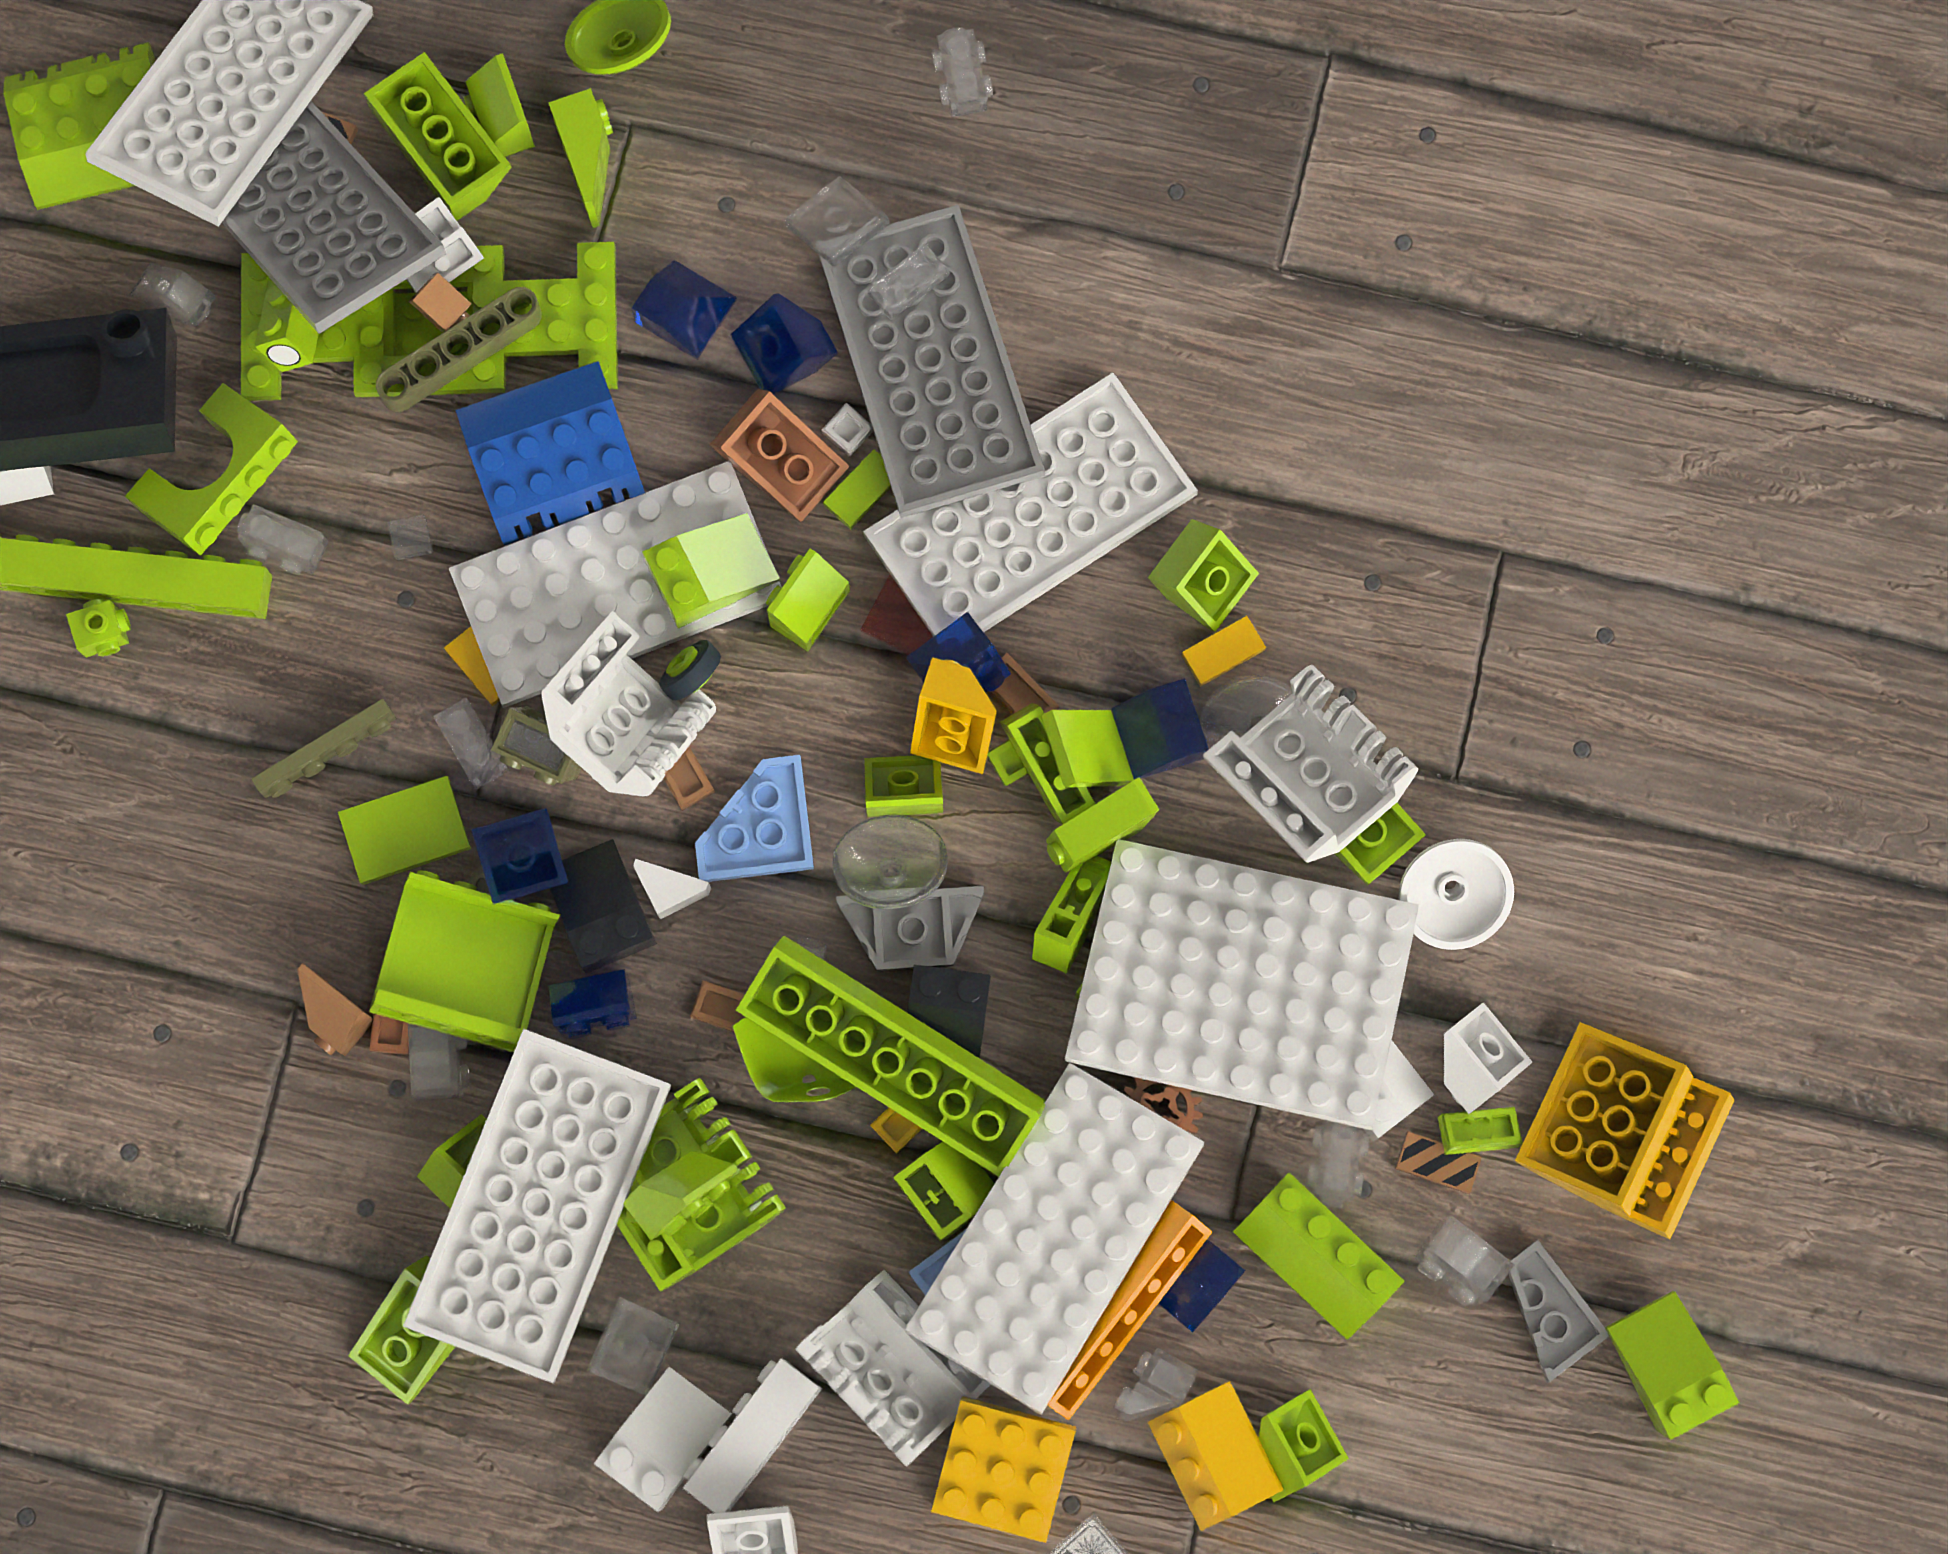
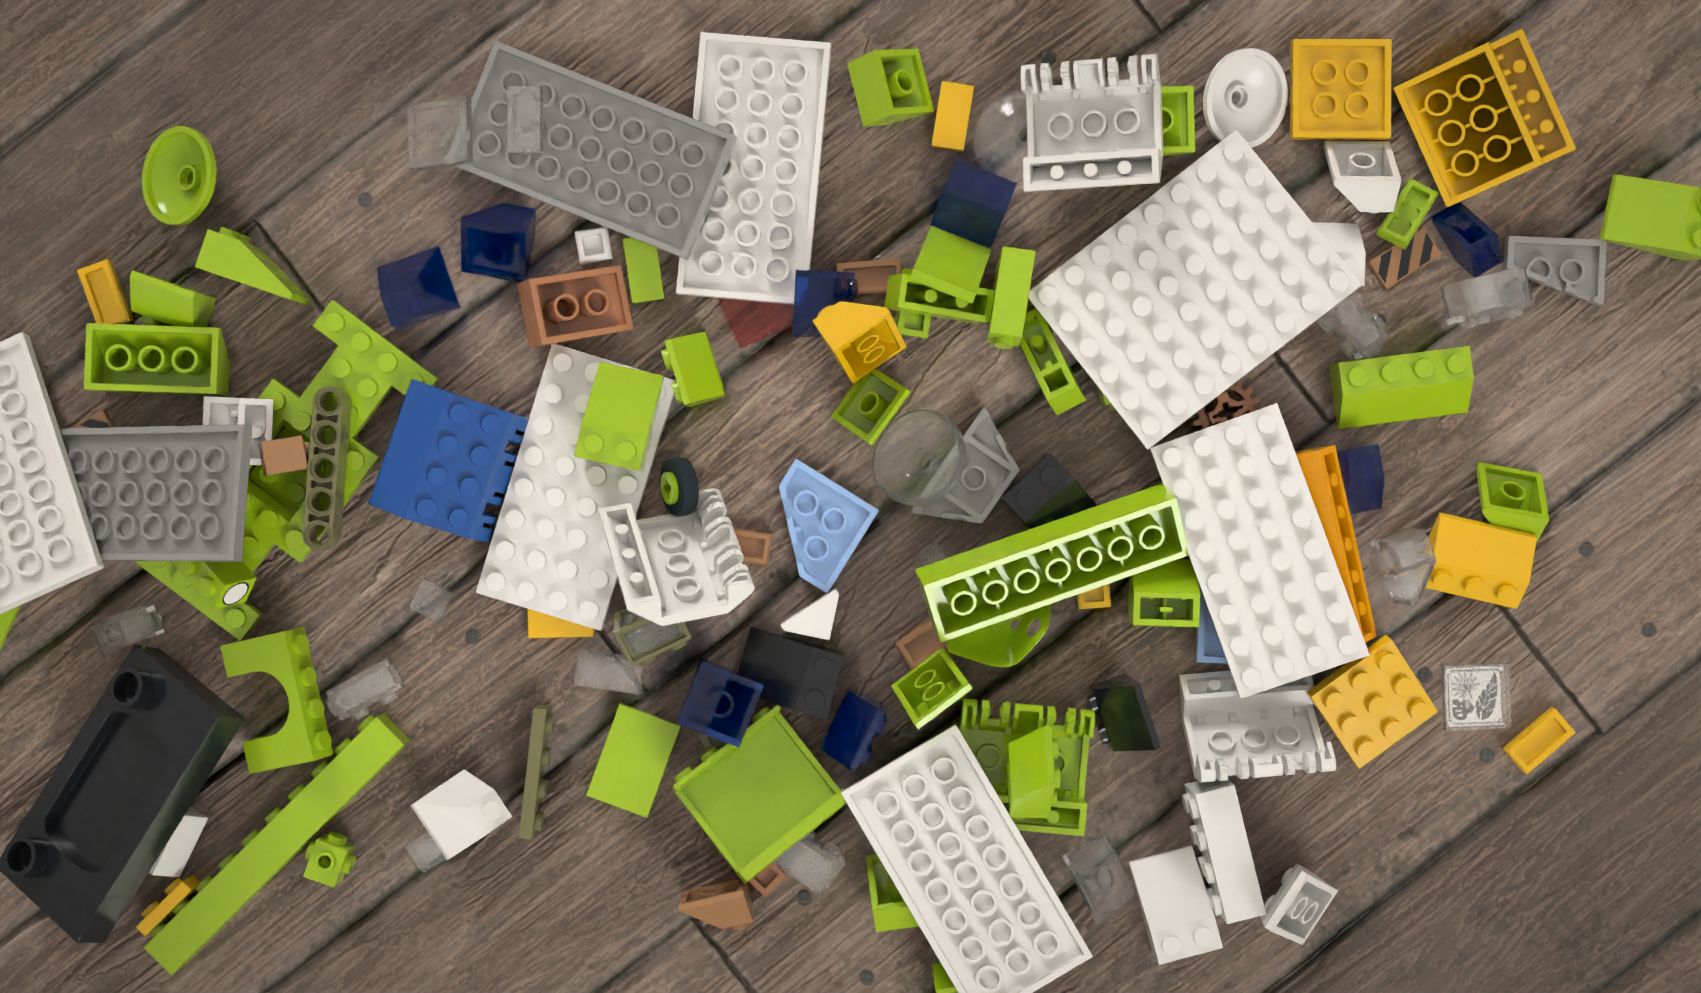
camera: 50 degrees left, 10 degrees up
(184, 712) = (425, 852): none -> clear brick
(233, 710) = (460, 812): none -> white slope
(463, 49) = (105, 293): none -> yellow tile
(686, 1044) = (931, 687): none -> lime slope
(803, 1236) = (1123, 715): none -> black slope
(1504, 1205) = (1468, 239): none -> clear blue slope
(1539, 977) = (1340, 89): none -> yellow plate

